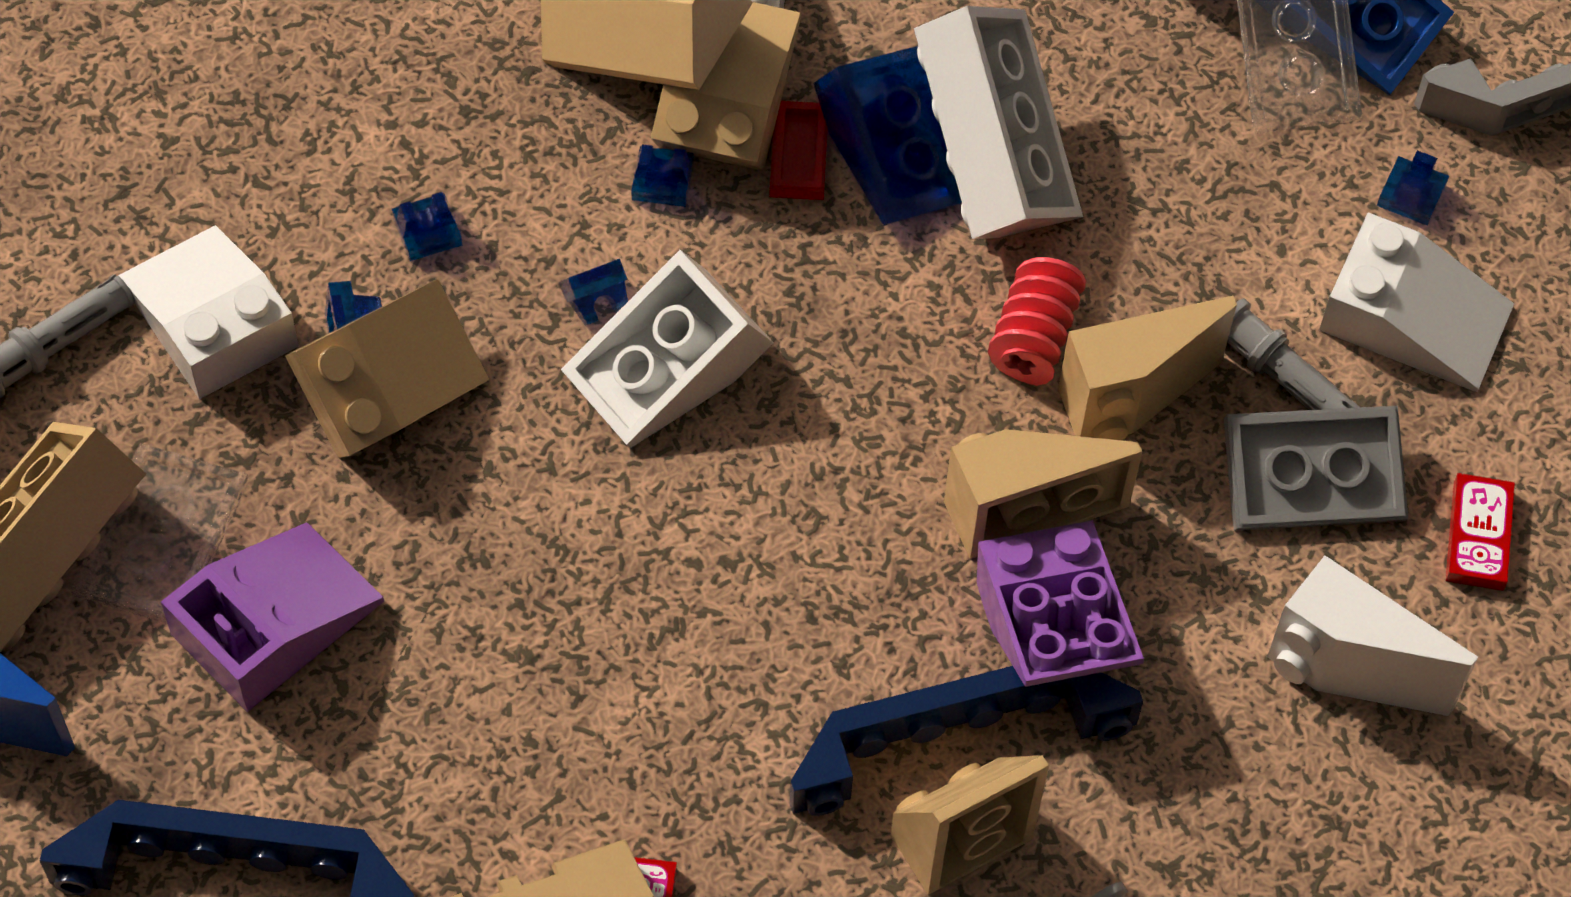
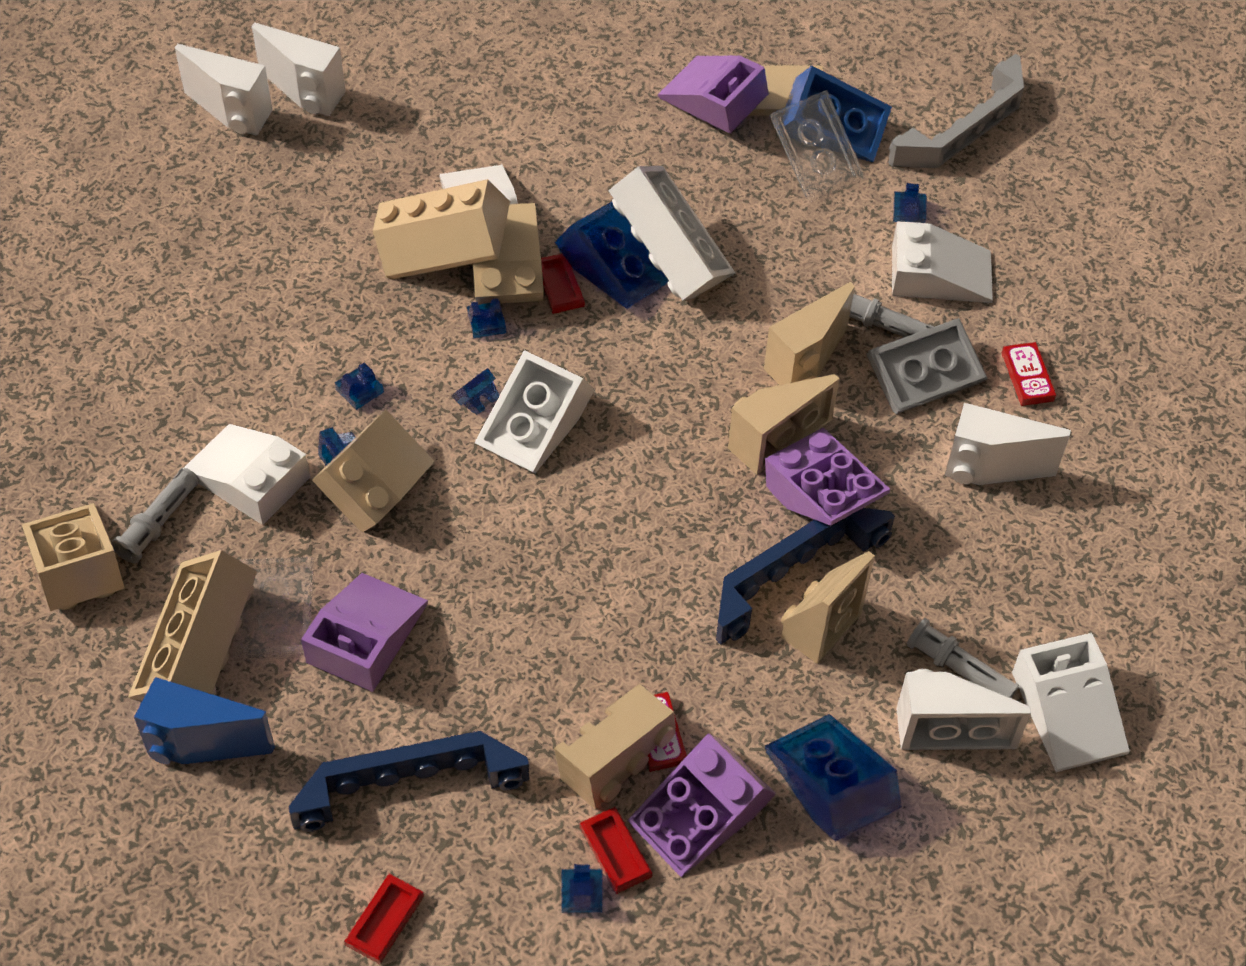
camera: 20 degrees left, 5 degrees down
(1036, 319) = (738, 333): coral piece -> none

